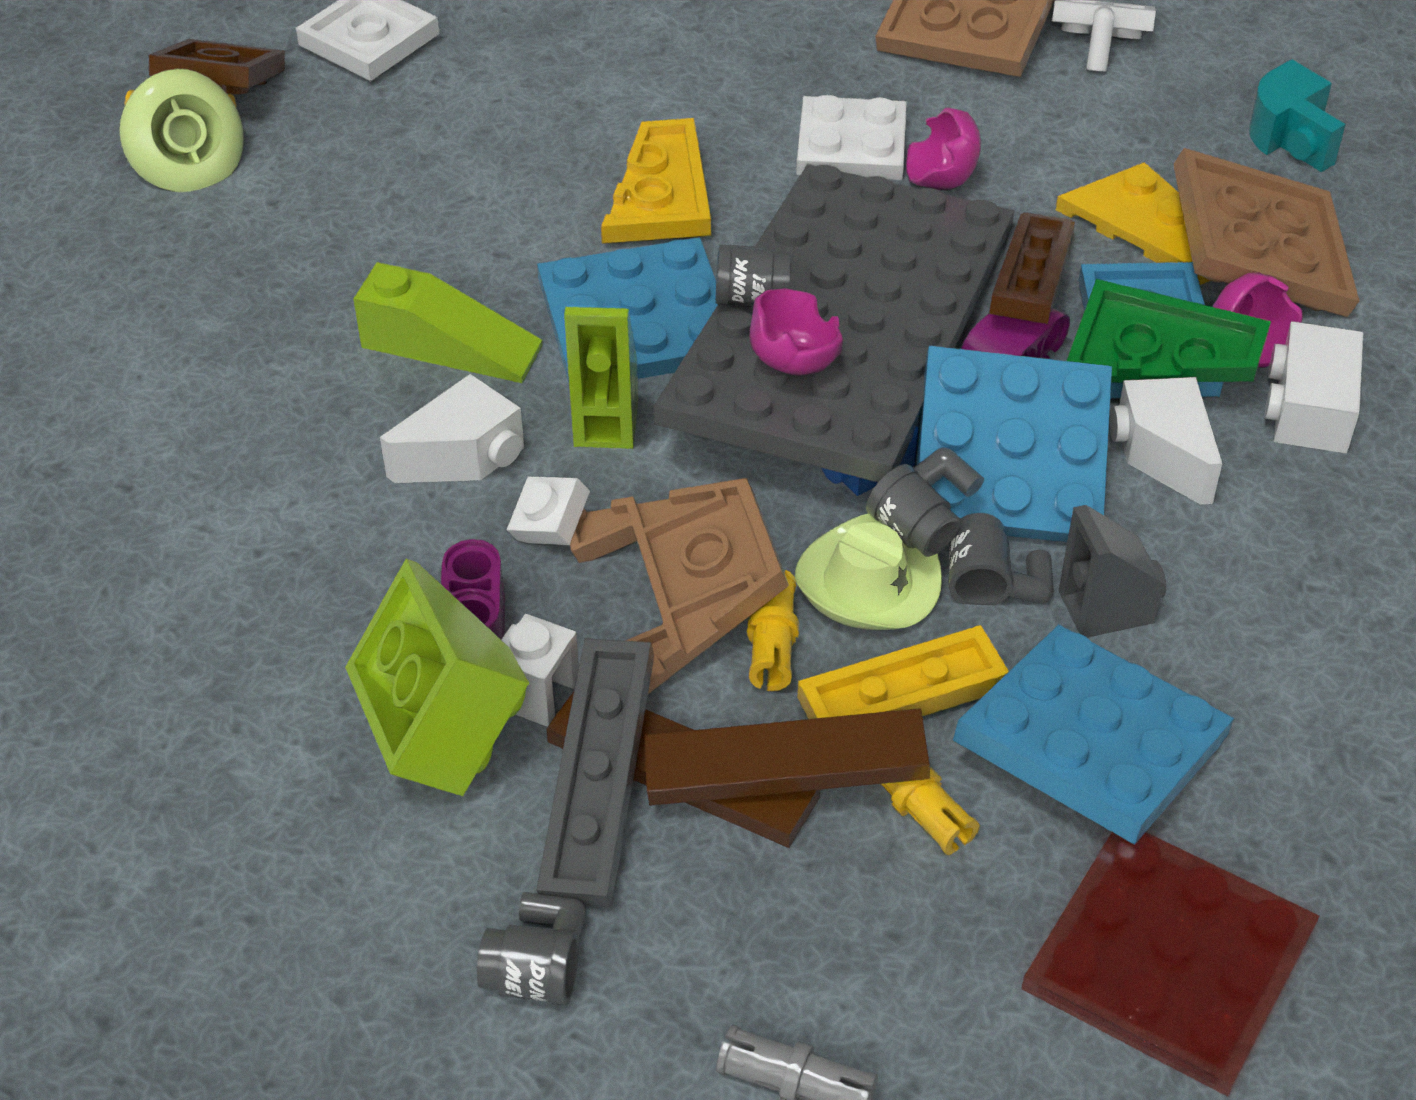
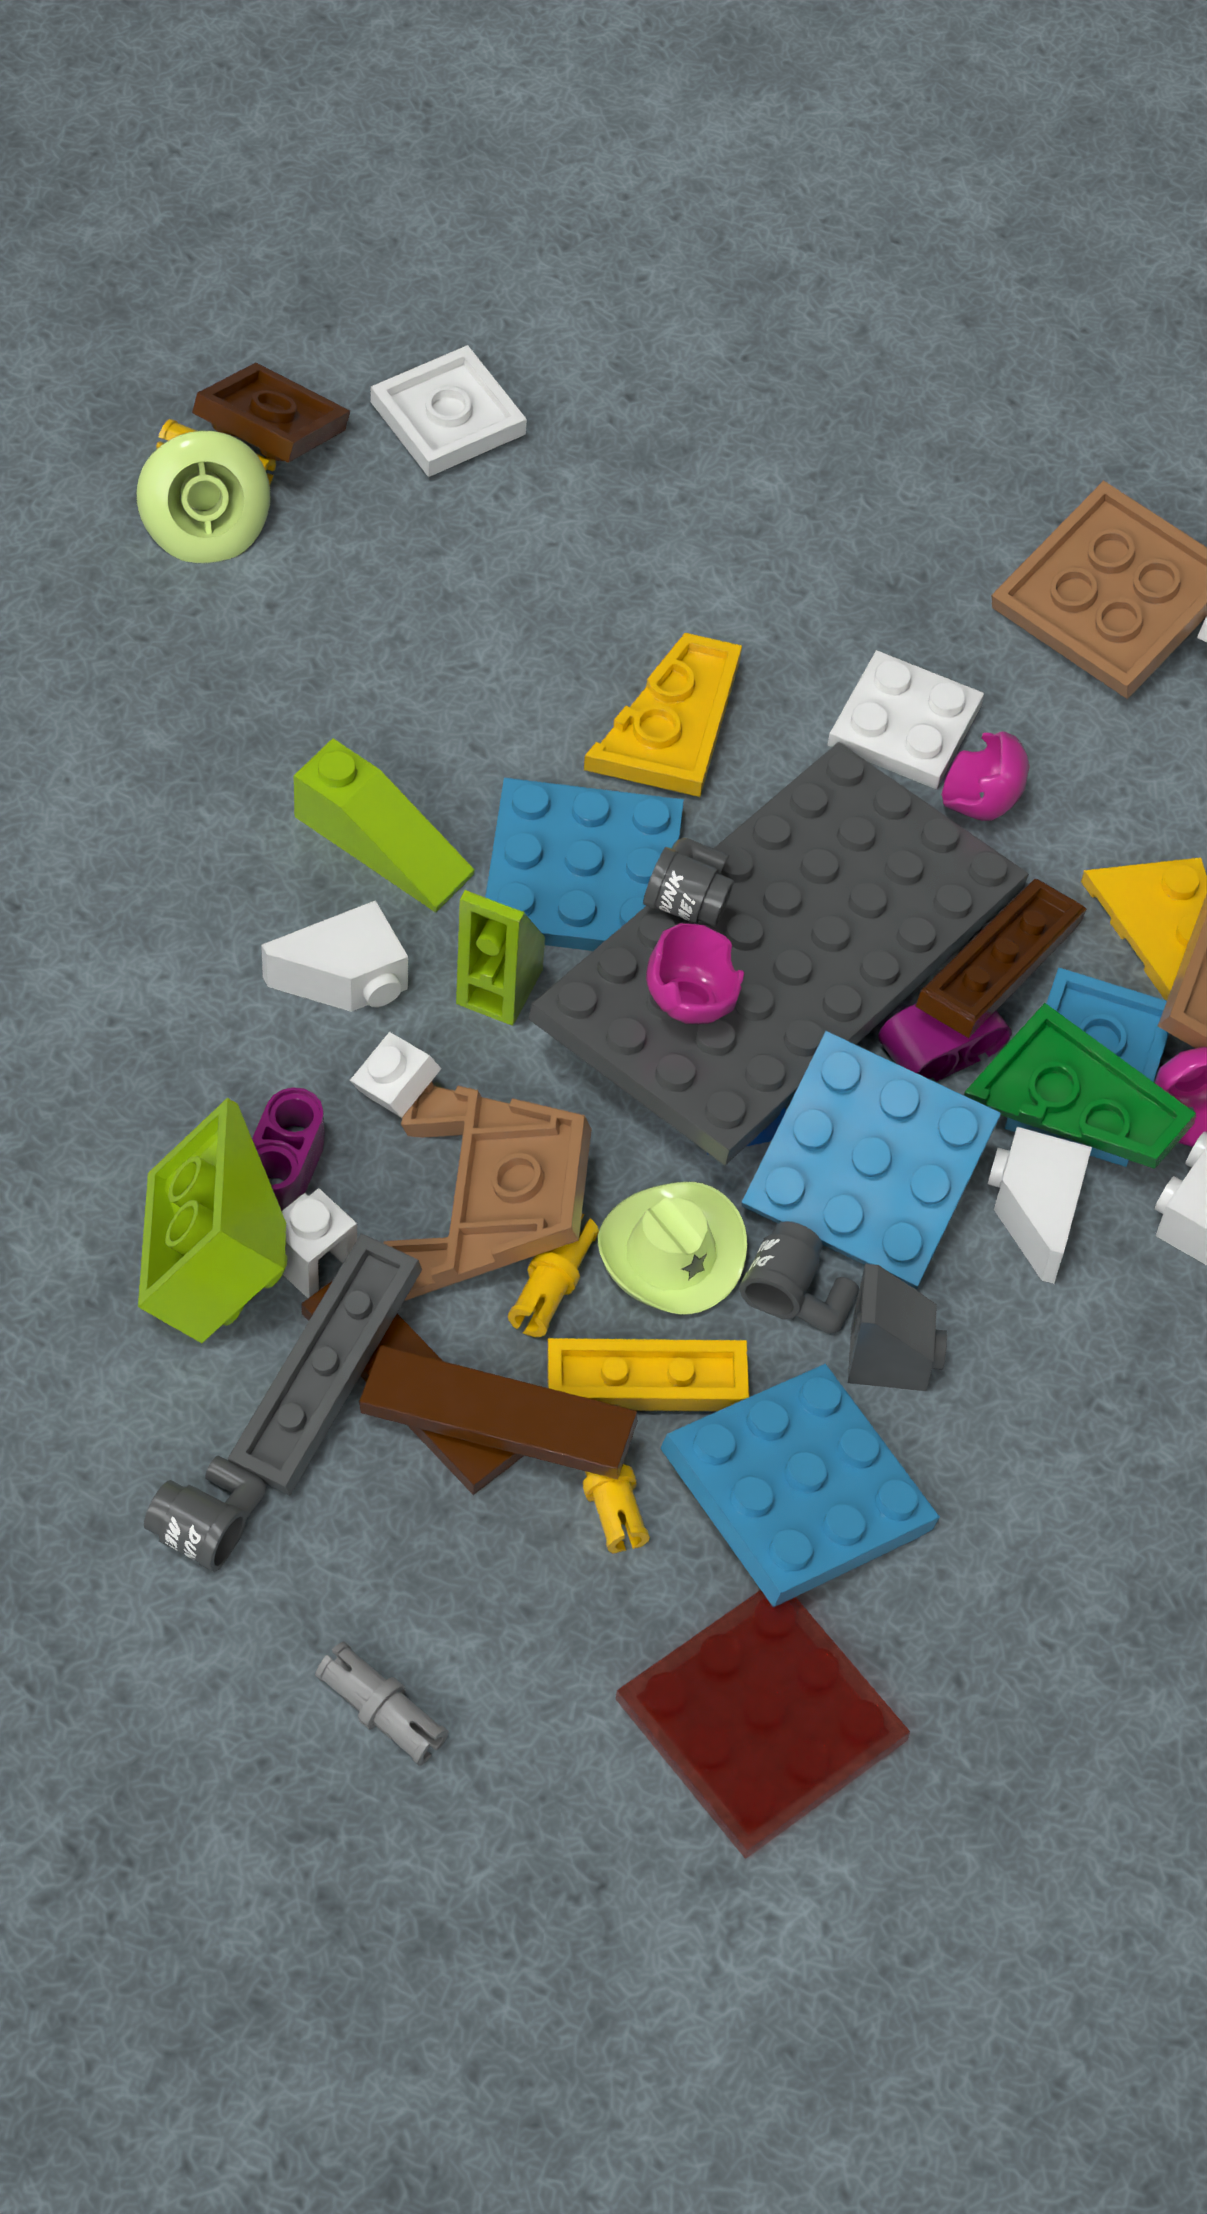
camera: 15 degrees right, 10 degrees up
(914, 508) = (734, 1197): dark grey piece -> none

